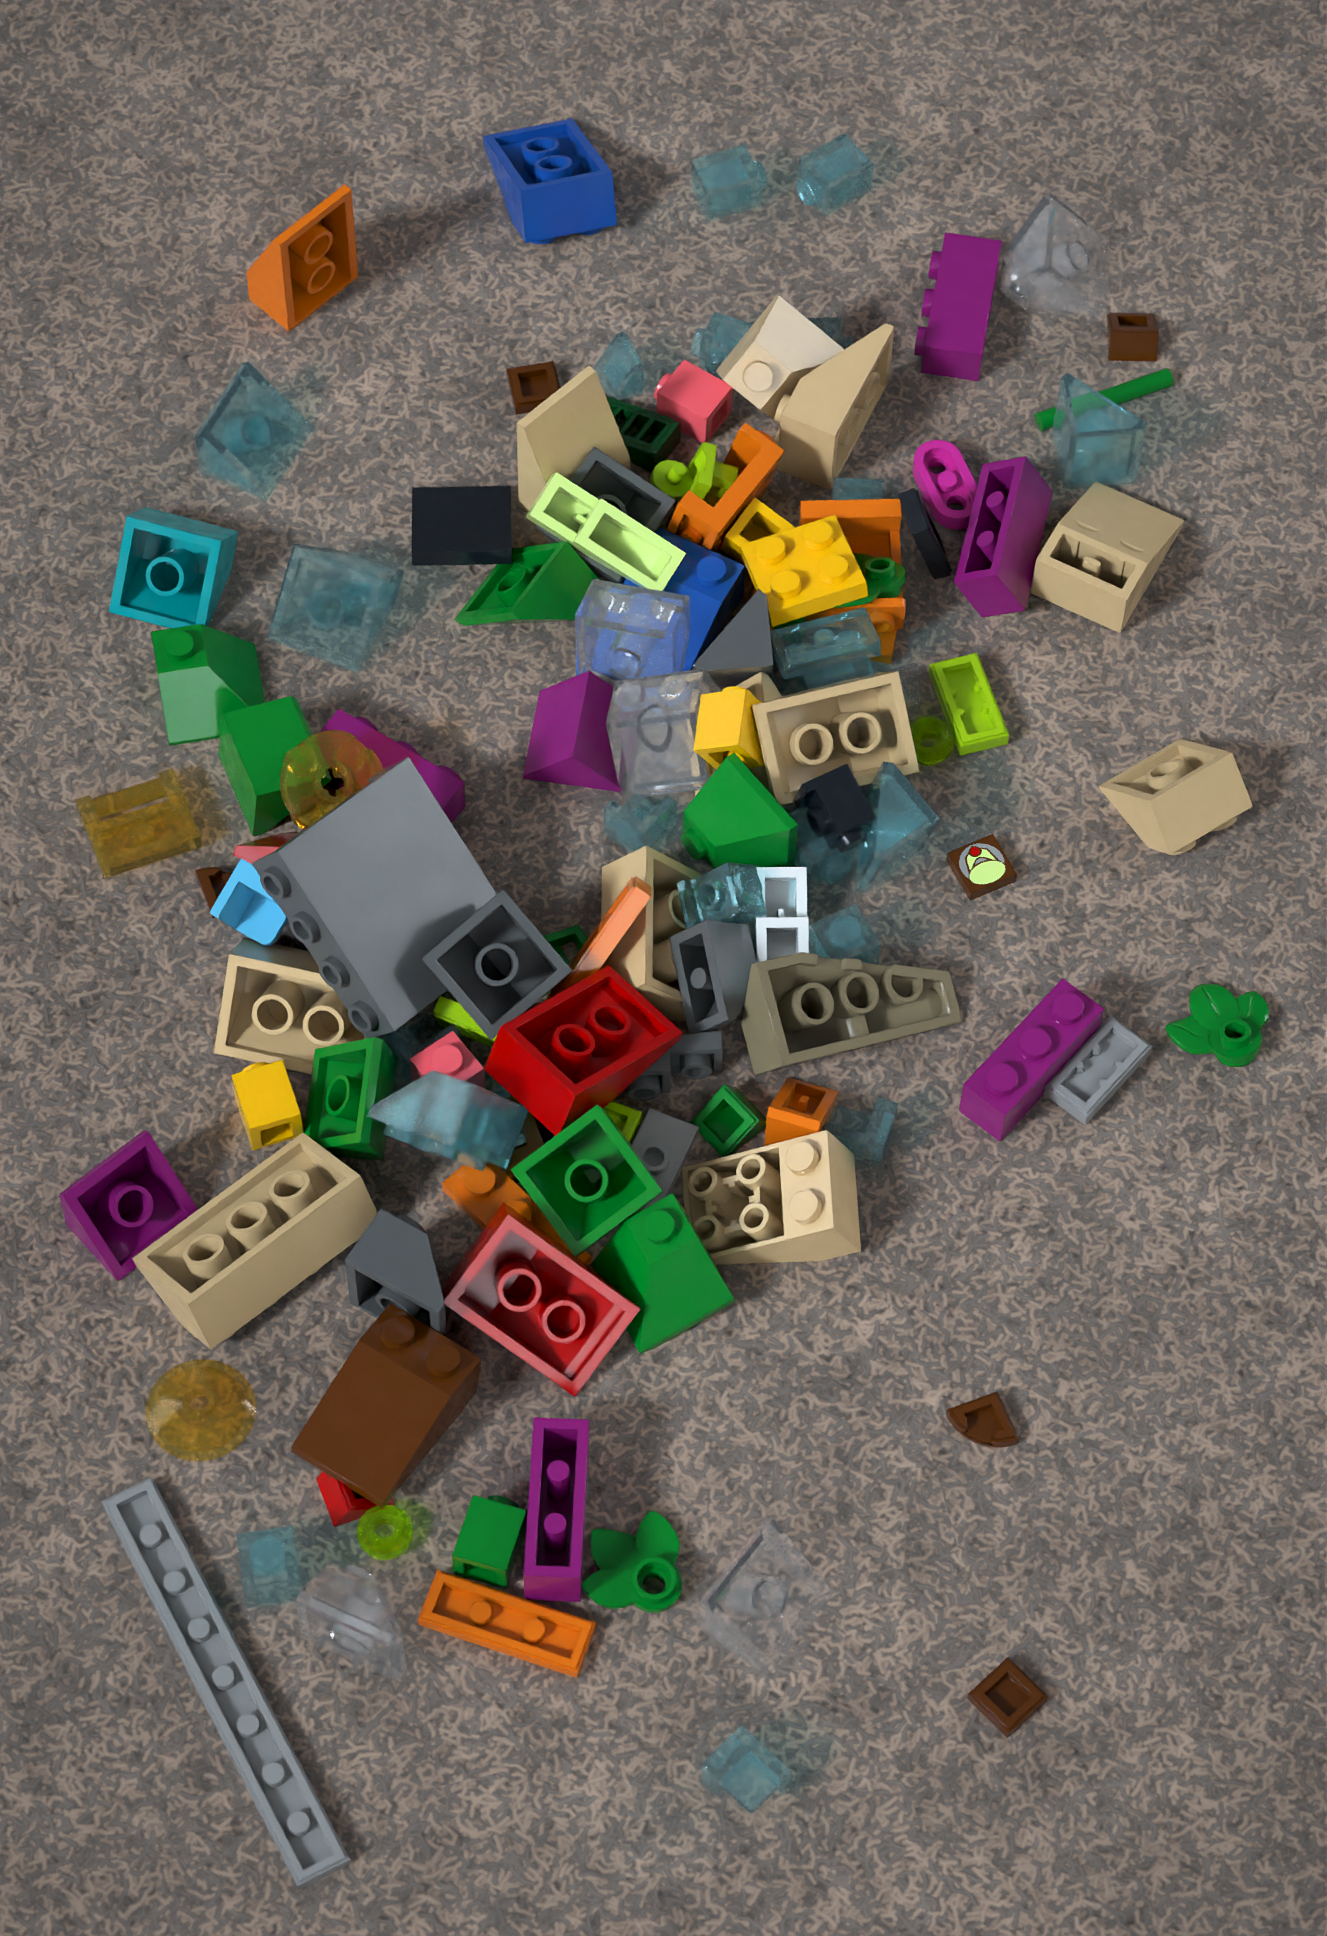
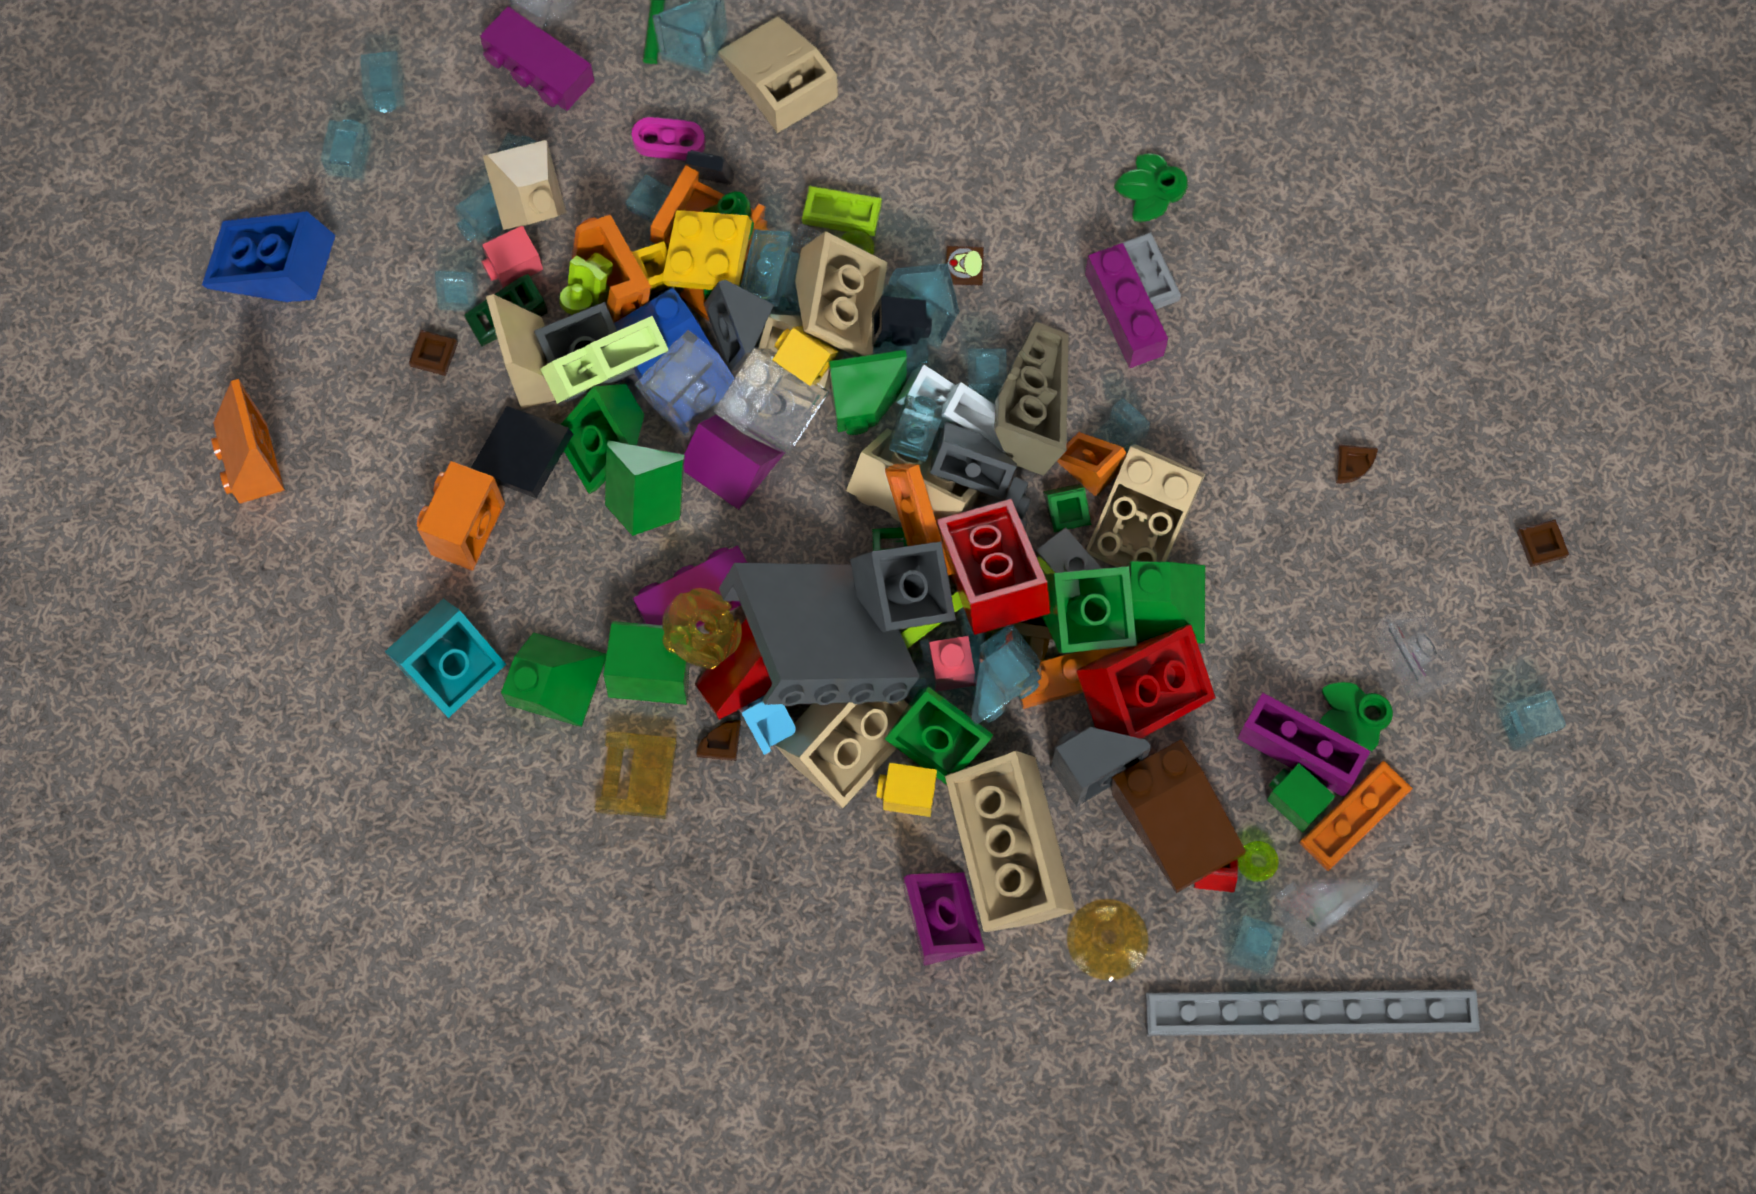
camera: 60 degrees left, 10 degrees up
(250, 435) = (367, 553): clear light blue slope -> none
(334, 604) = (539, 563): clear light blue slope -> none
(341, 495) = (460, 515): none -> orange brick
(482, 659) = (643, 486): none -> green slope
(639, 822) = (821, 452): clear light blue panel -> none
(832, 408) = (586, 179): tan slope -> none
(1003, 537) = (735, 123): magenta brick -> none
(1179, 795) = (979, 124): tan slope -> none

